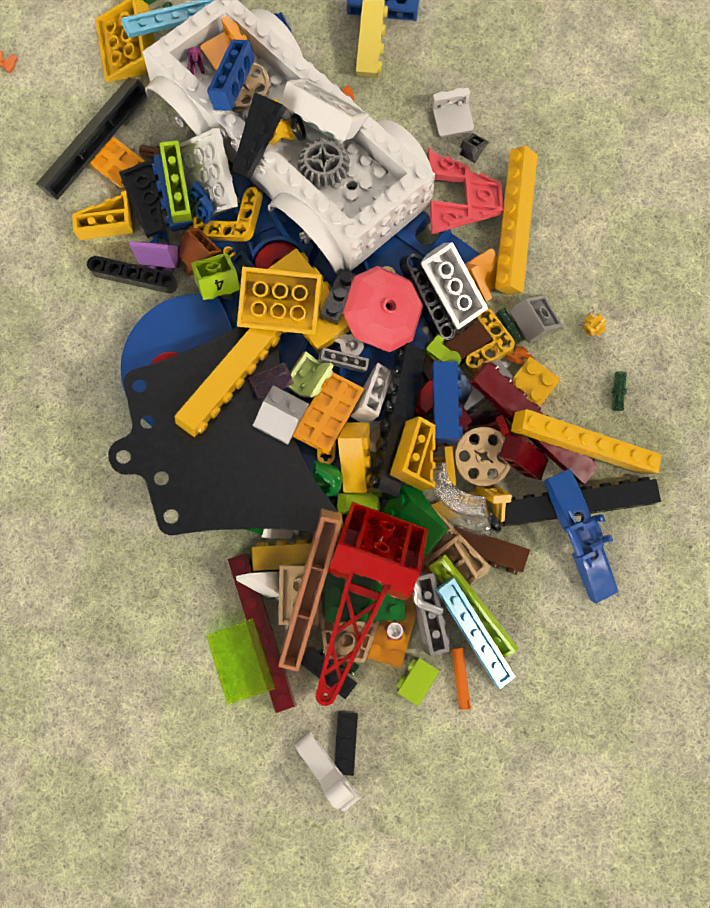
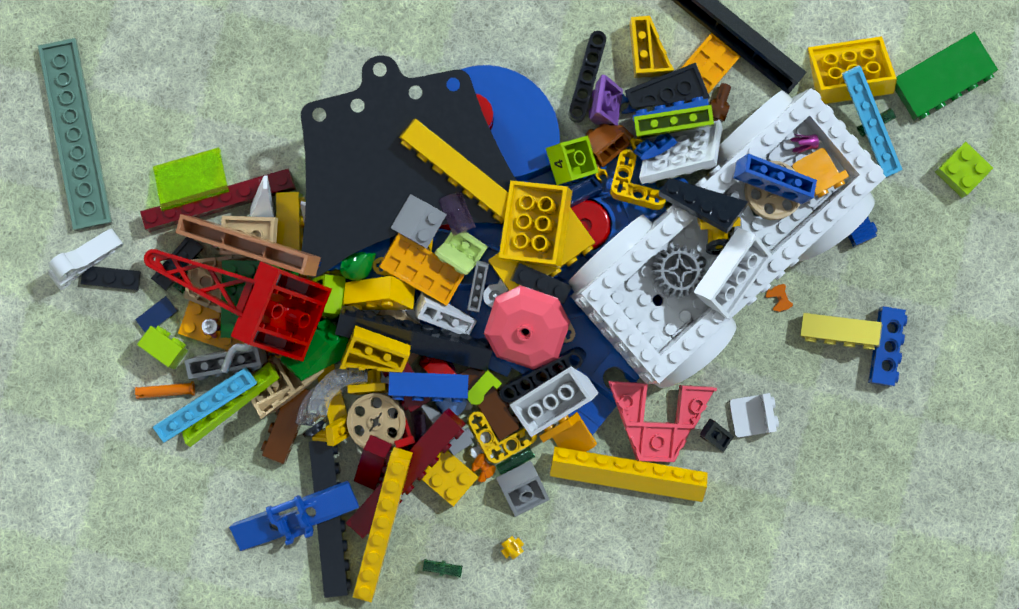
camera: 80 degrees right, 5 degrees up
(193, 791) = (75, 134): none -> sand green plate
(383, 692) = (157, 314): none -> dark blue tile

